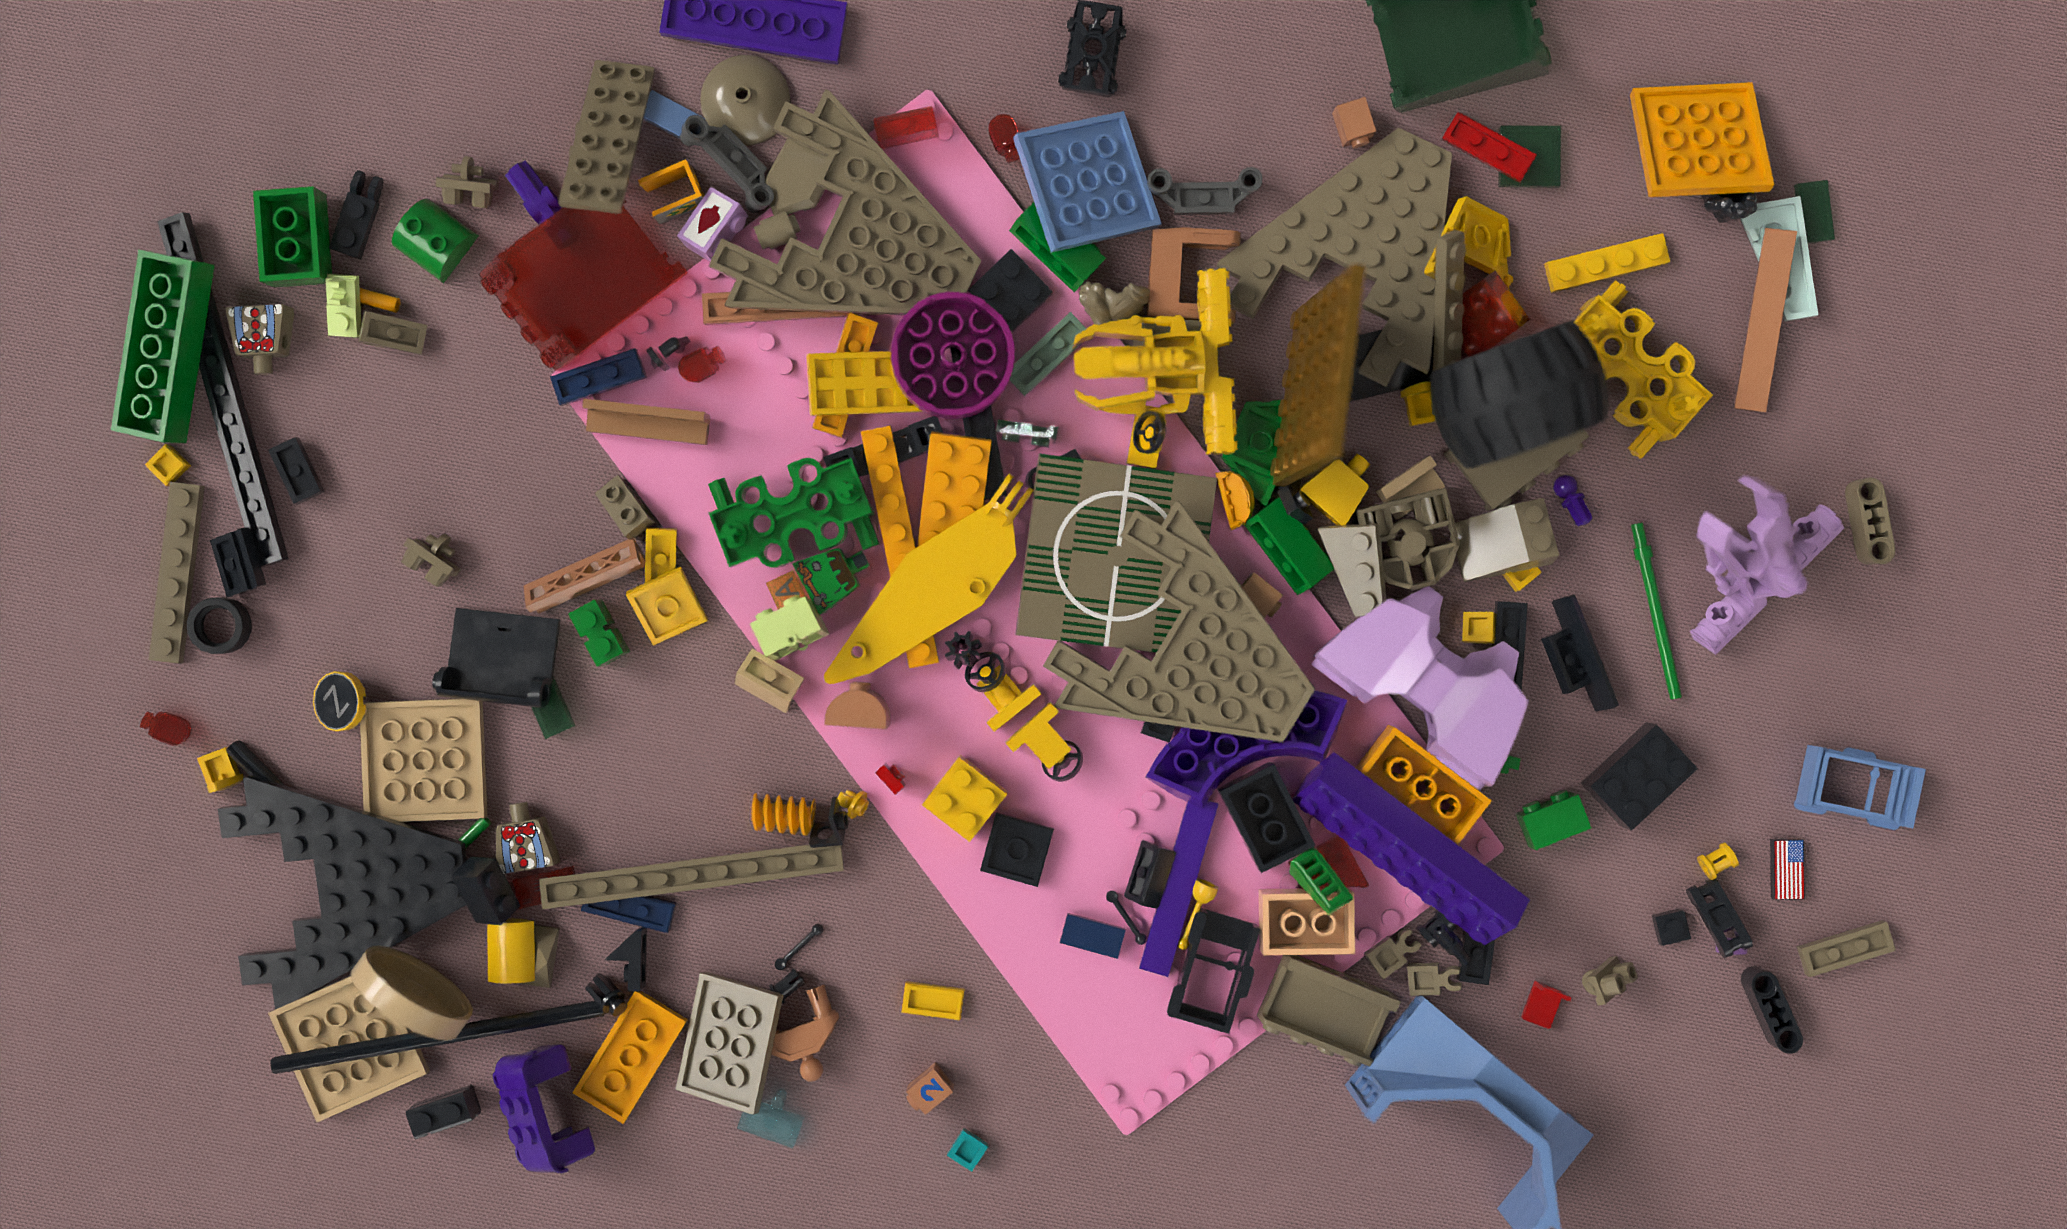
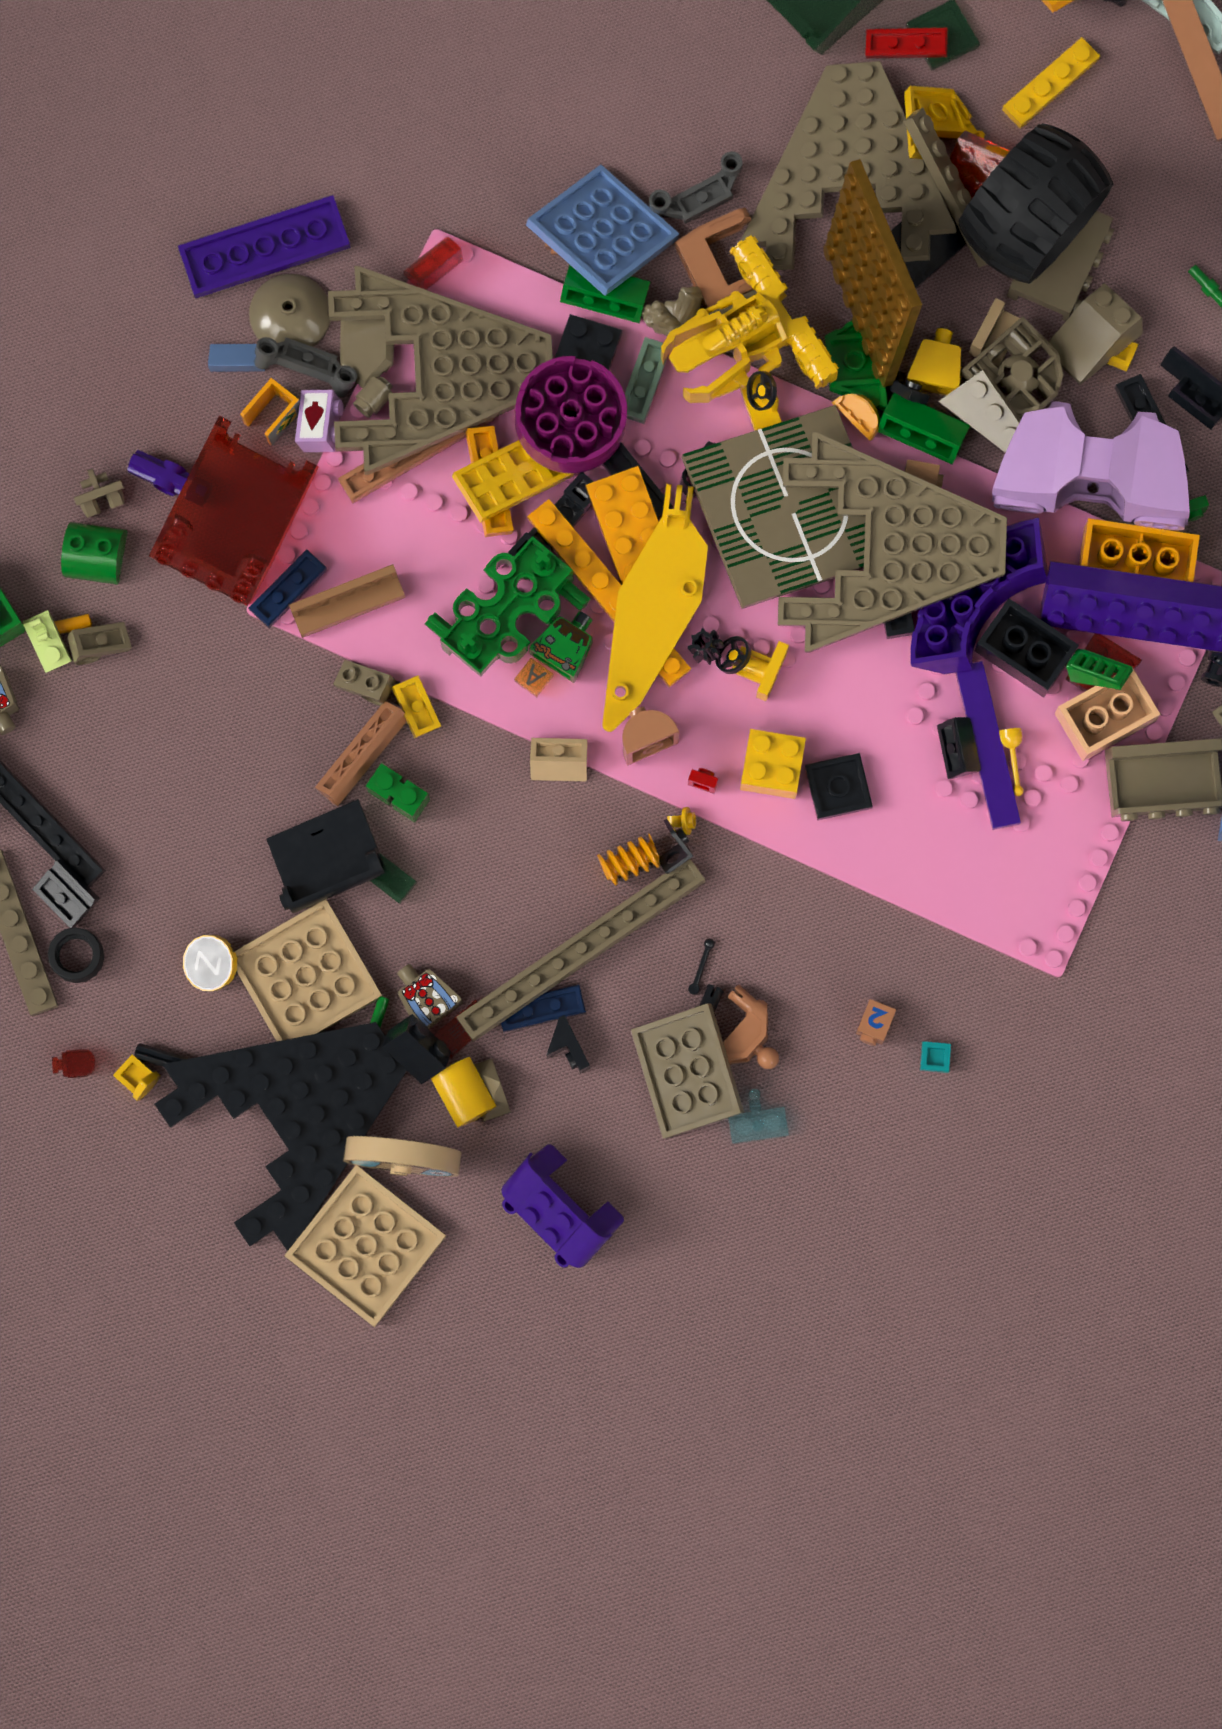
camera: 25 degrees left, 10 degrees down
(296, 470) = (75, 795): black plate -> none
(357, 217) = (20, 569): black hinge -> none
(414, 1040) = (439, 1196): black axle -> none
(441, 566) = (213, 805): dark tan hips -> none
(443, 1111) = (477, 1259): black brick -> none
(607, 137) = (198, 392): dark tan bracket -> none
(607, 995) = (571, 1088): black arm -> none
(630, 1056) = (609, 1130): light orange plate -> none
(666, 606) = (442, 742): yellow tile -> none
(667, 348) = (337, 531): black piece -> none
(701, 364) = (367, 533): clear red arm -> none
(787, 627) = (554, 698): yellowish green brick -> none
(933, 1000) = (837, 951): yellow tile -> none
(1001, 131) = (516, 233): clear red arm -> none
(1013, 431) = (663, 446): wing -> none
(1047, 744) = (816, 684): yellow piece -> none
(1092, 935) = (939, 823): dark blue tile -> none
(1106, 58) = (539, 137): black piece -> none
(1112, 897) = (939, 784): black hinge -> none
(1228, 932) = (1051, 762): black piece -> none
(1354, 123) = (789, 79): nougat brick -> none
(1388, 955) = (1191, 712): dark tan plate -> none
(1418, 403) = (965, 266): yellow tile -> none
(1478, 627) = (1113, 413): yellow plate -> none
(1566, 488) = (1120, 271): dark purple axle -> none
(1683, 395) = (1160, 171): yellow gear -> none

